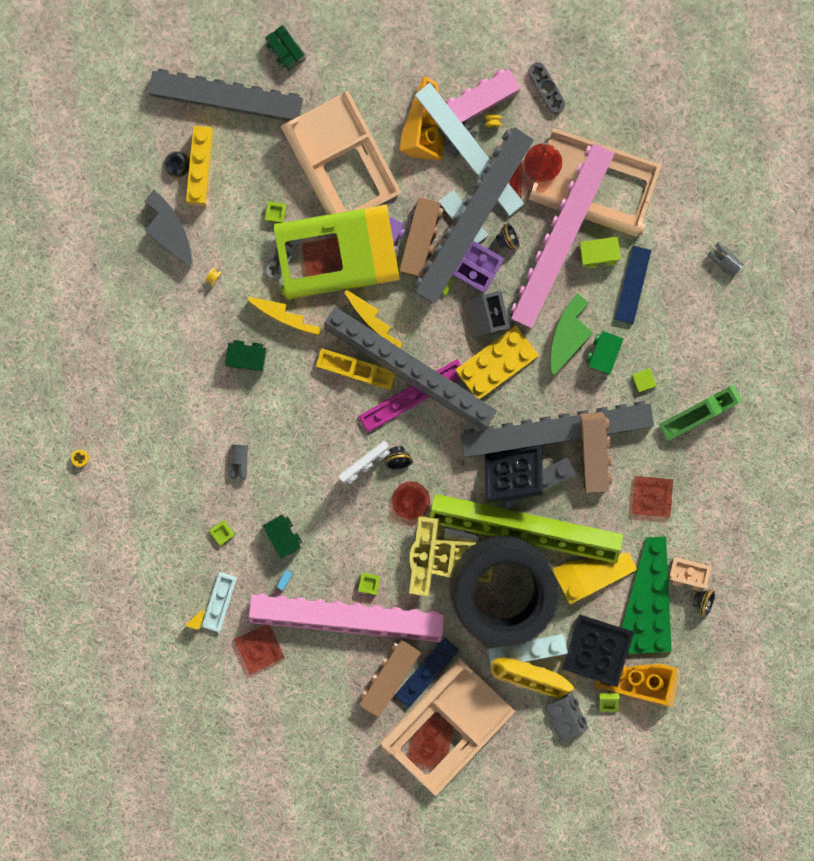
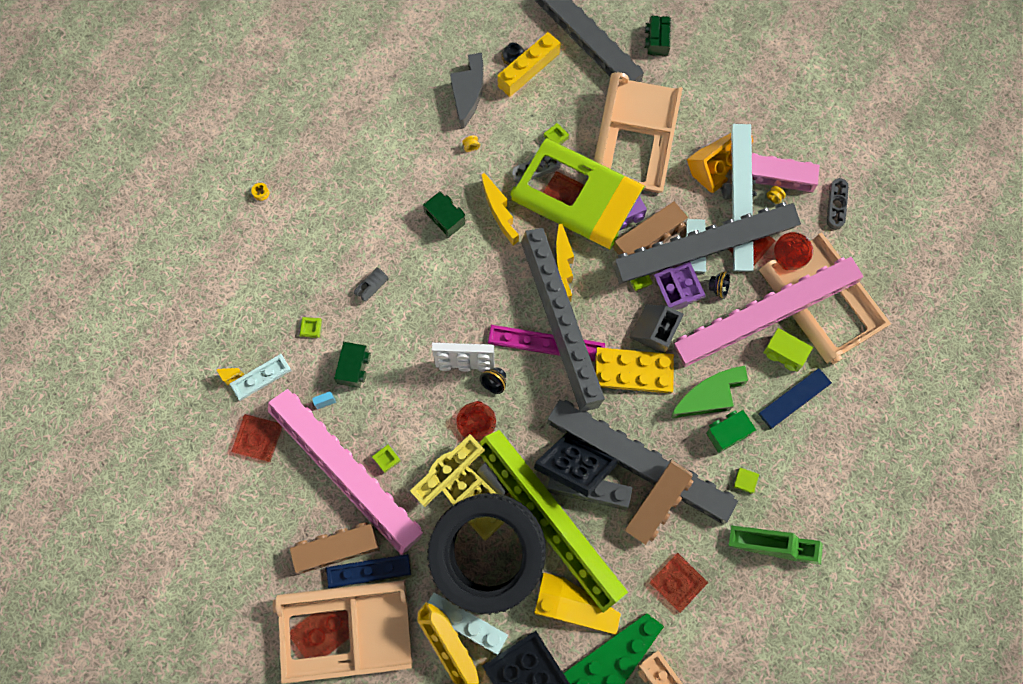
camera: 40 degrees right, 15 degrees down
(355, 369) = (519, 289): yellow slope -> none
(729, 263) = (891, 443): dark grey hinge -> none

